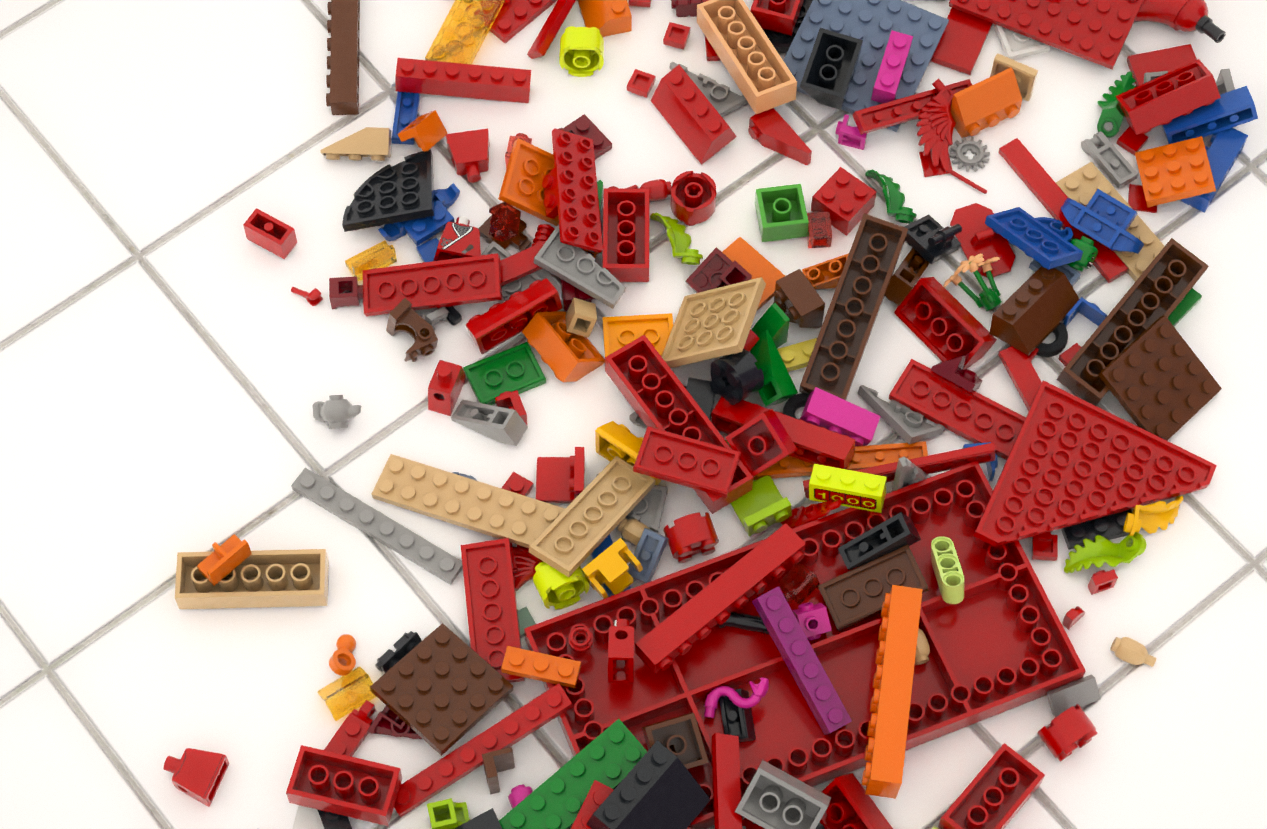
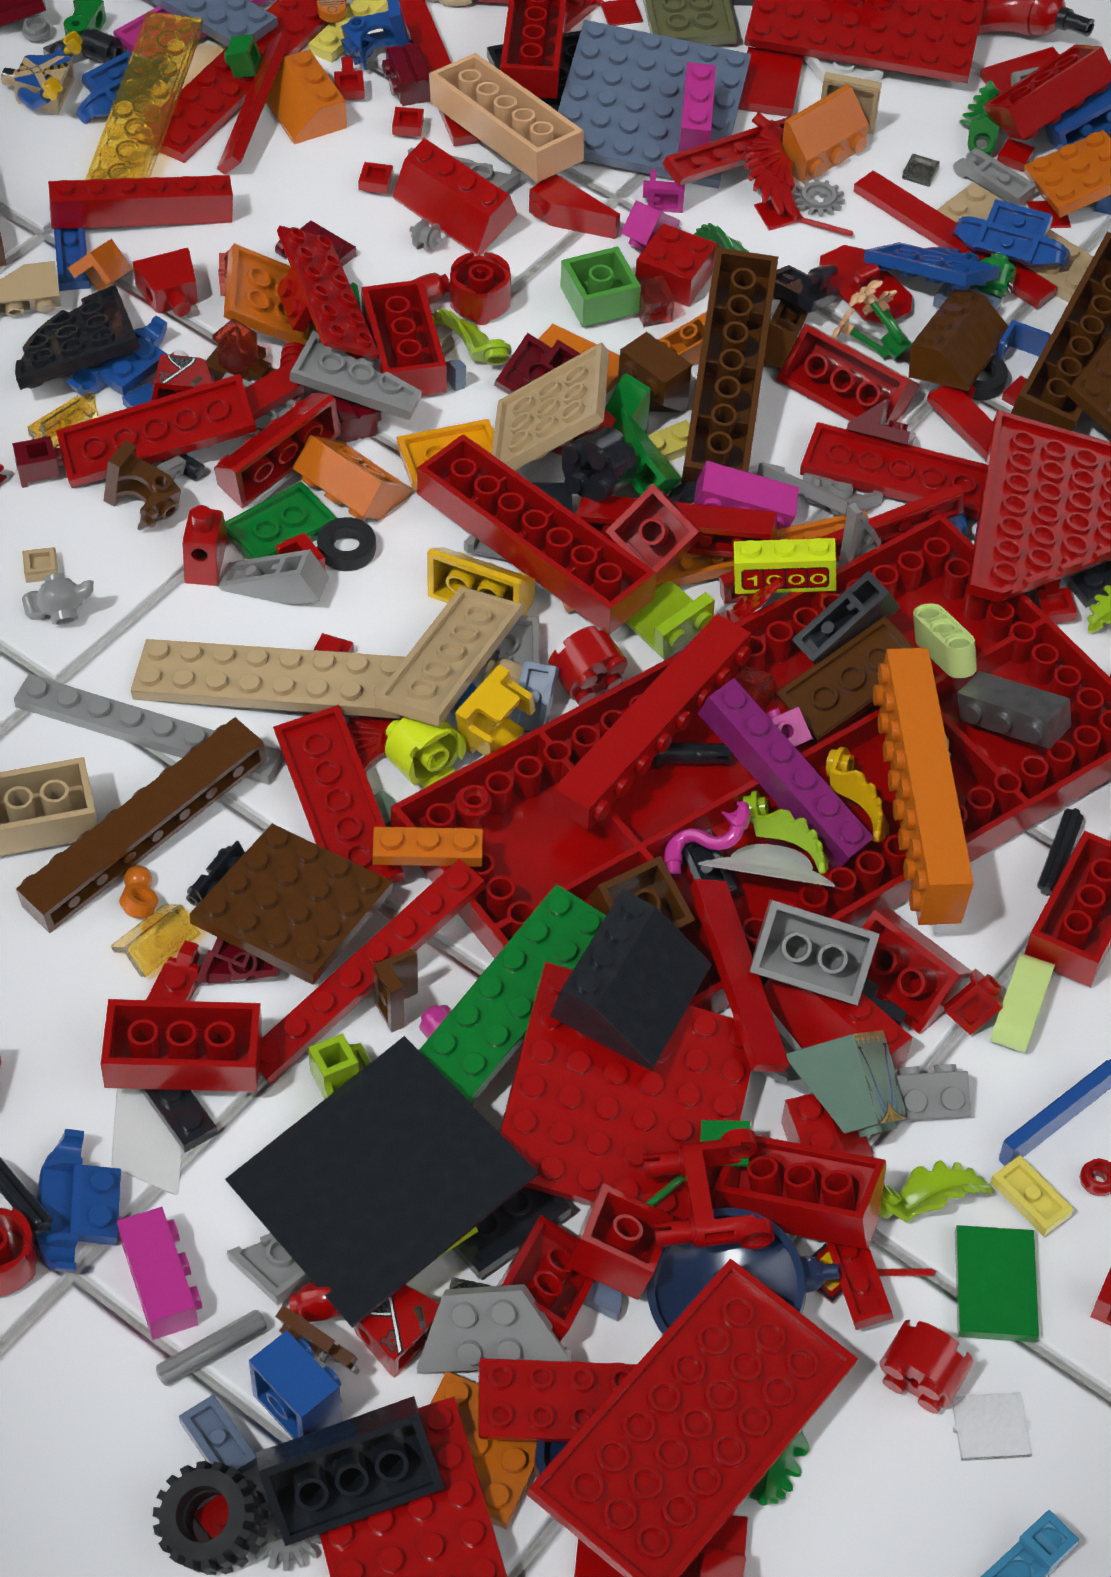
camera: 15 degrees left, 10 degrees down
(331, 377) = (39, 564): none -> tan tile
(356, 604) = (141, 824): none -> reddish brown brick
(547, 386) = (343, 528): none -> black tyre
(560, 477) = (392, 627): red bracket -> none
(581, 50) = (289, 149): neon yellow brick -> none
(581, 317) = (368, 438): tan brick -> none
(621, 652) = (537, 789): red torso -> none
(658, 268) = (456, 374): none -> sand blue tile
(667, 143) = (427, 235): none -> light grey wheel
(687, 461) = (562, 566): red tile -> none
(775, 723) = (771, 861): none -> white sticker
(777, 679) = (784, 827): none -> lime plant
(831, 67) = (621, 115): black slope -> none
(831, 159) = (644, 223): none -> dark pink slope
(846, 655) = (854, 786): none -> yellow plant
(982, 635) = (1014, 709): none -> flat silver brick
(989, 747) = (1060, 850): none -> black axle
(1055, 142) = (921, 170): none -> clear smoke tile

